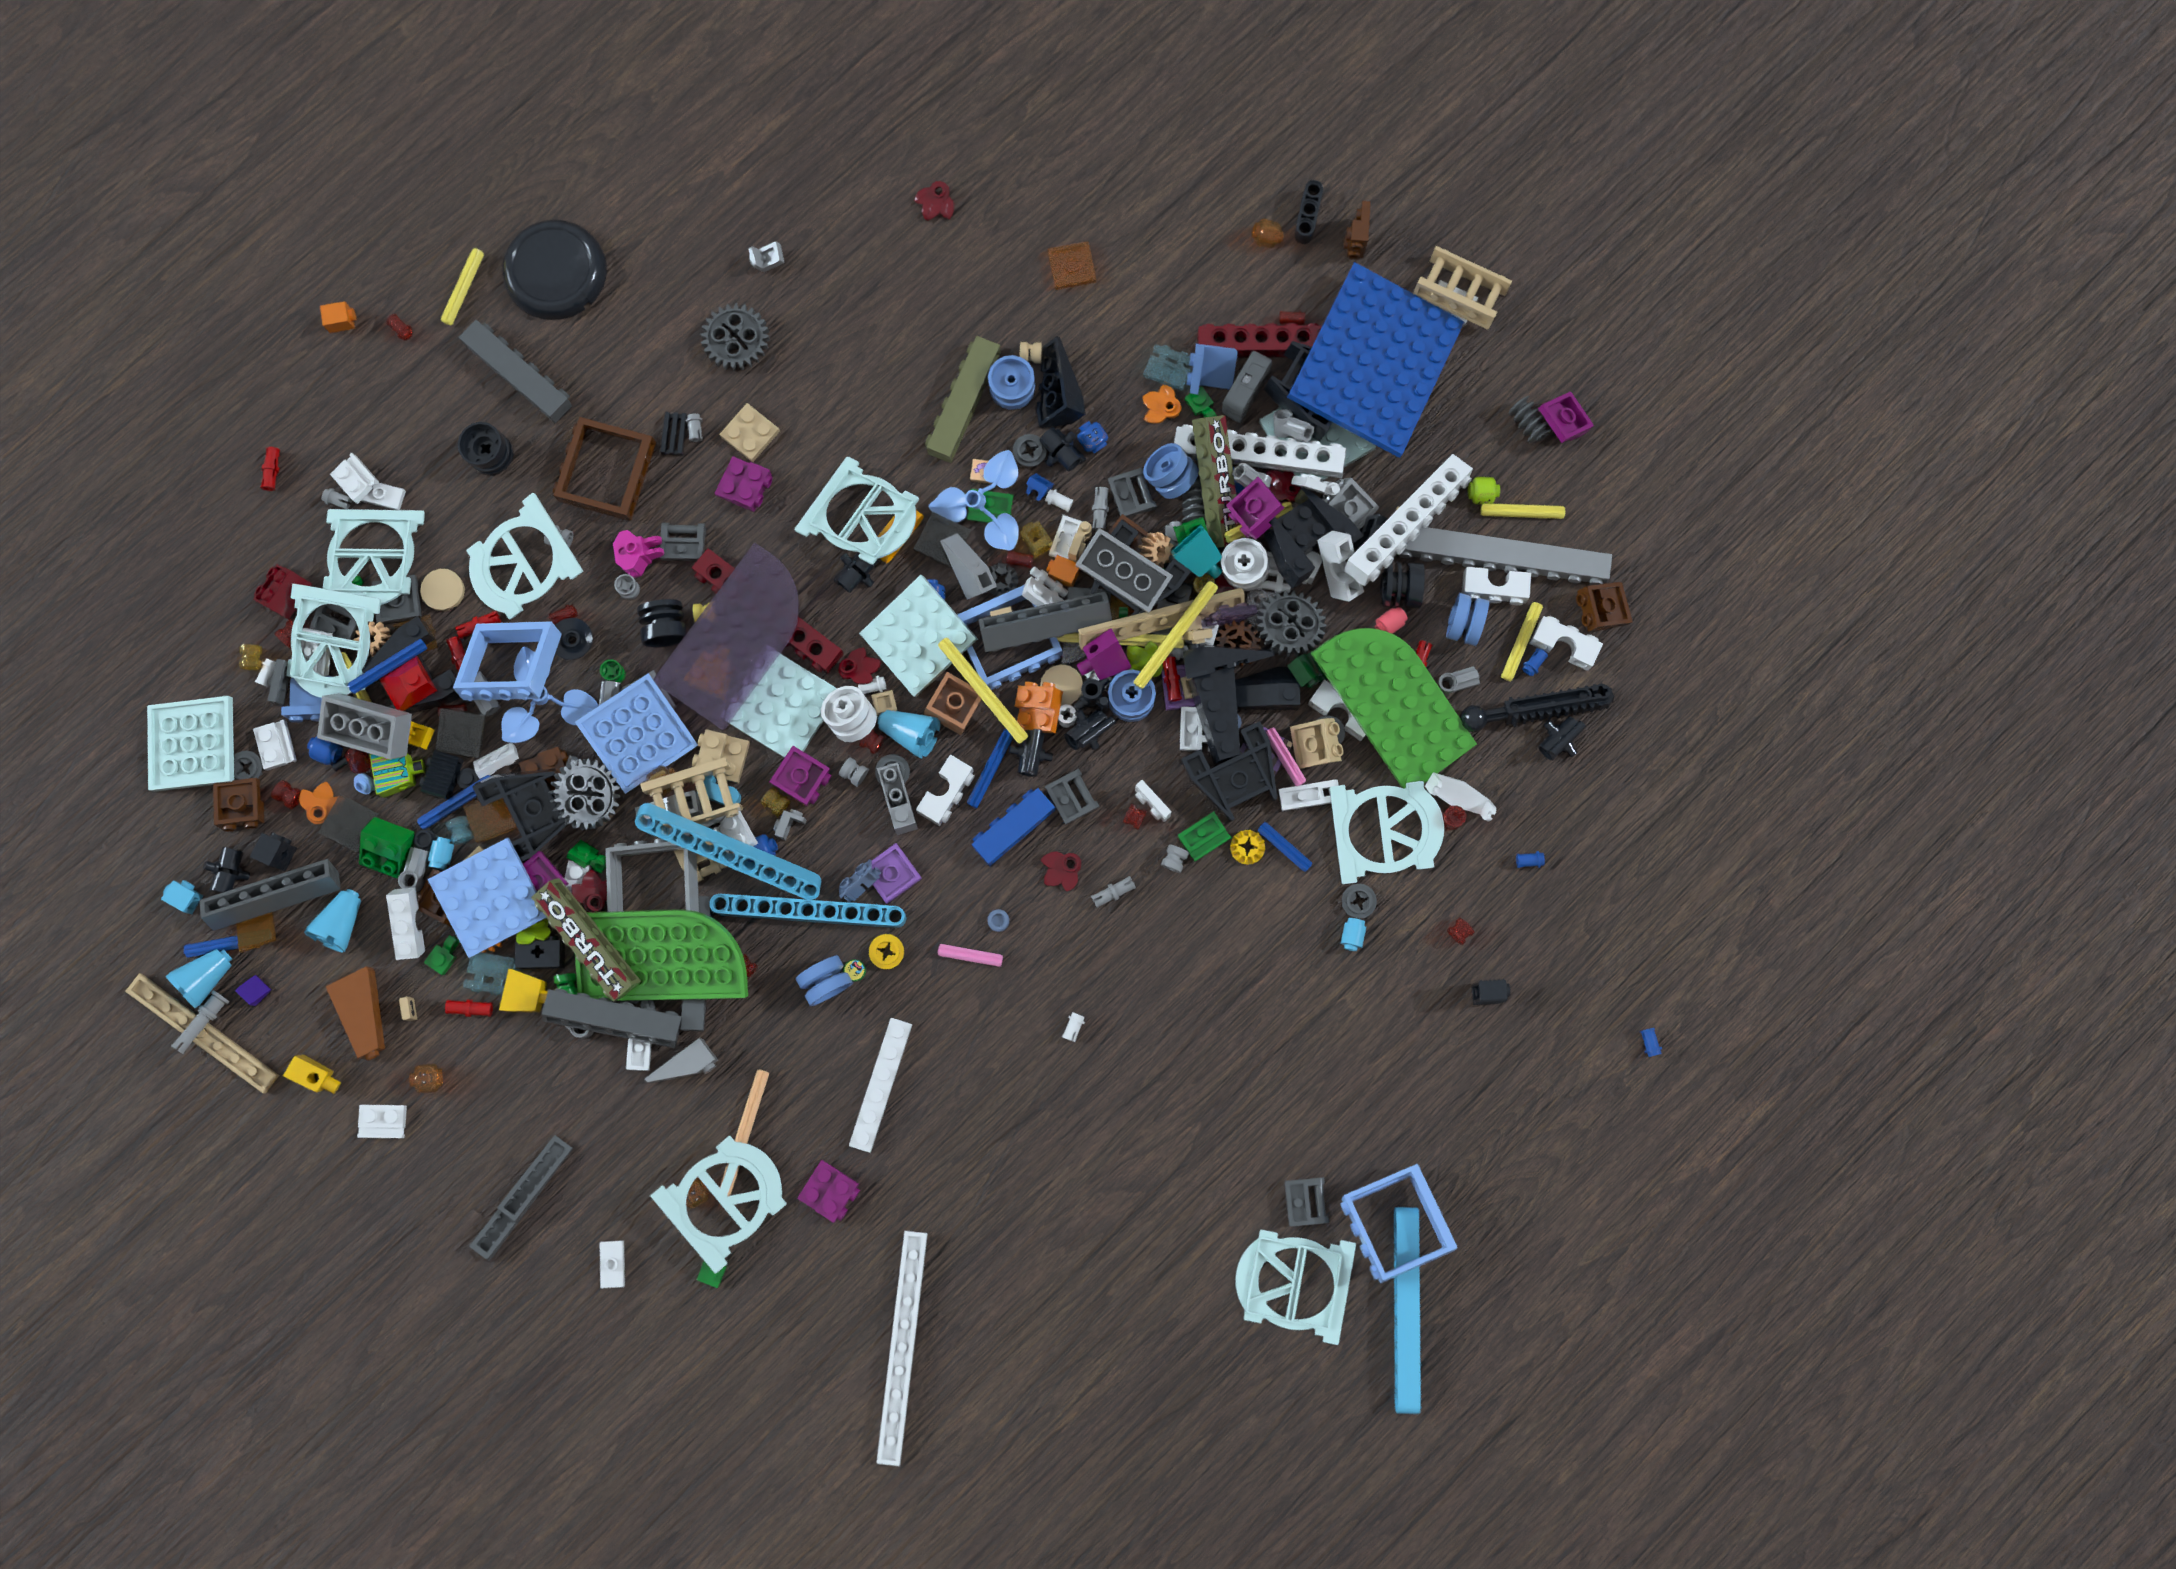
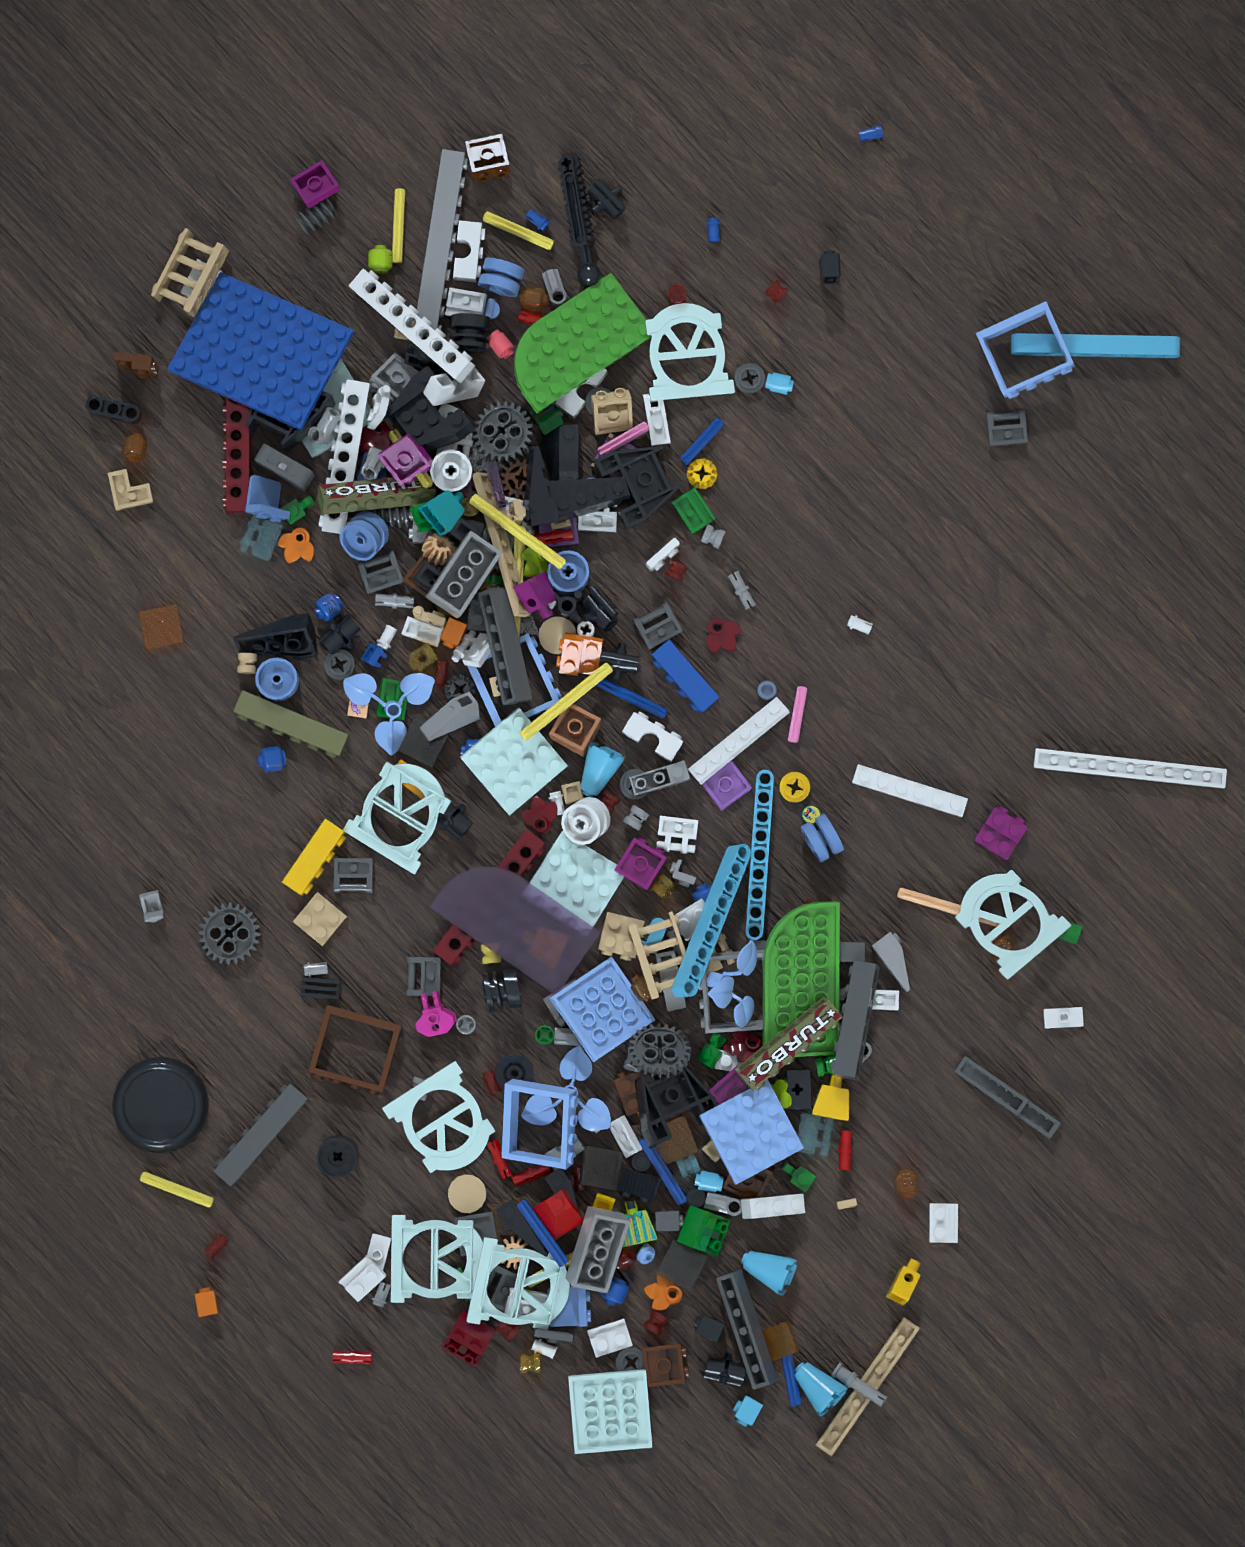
camera: 90 degrees left, 5 degrees up
(253, 990) = (830, 1342): dark purple slope -> none
(359, 1011) = (846, 1247): dark orange slope -> none
(399, 807) = (668, 1220): none -> dark grey brick
(634, 857) = (723, 985): none -> light blue plant
(744, 484) = (369, 922): magenta plate -> none
(803, 466) = (353, 869): none -> dark grey plate
(816, 424) = (314, 857): none -> yellow brick
(841, 818) = (677, 828): none -> white plate
(852, 888) = (738, 817): sand blue hinge -> none
(924, 379) = (271, 759): none -> blue head
(933, 203) = (100, 754): dark red plate -> none
(940, 887) = (738, 740): none -> white plate
(1216, 224) = (125, 495): none -> tan plate
(1292, 317) = (215, 426): clear red pin -> none
(1338, 1258) = (1104, 410): light aqua window -> none
(1431, 610) = (491, 308): none -> light blue plate
(1437, 582) = (465, 302): none -> white plate
(1444, 657) = (534, 298): none -> clear orange head
(1460, 794) = (657, 287): white piece -> none
(1584, 647) = (526, 177): white arch -> none

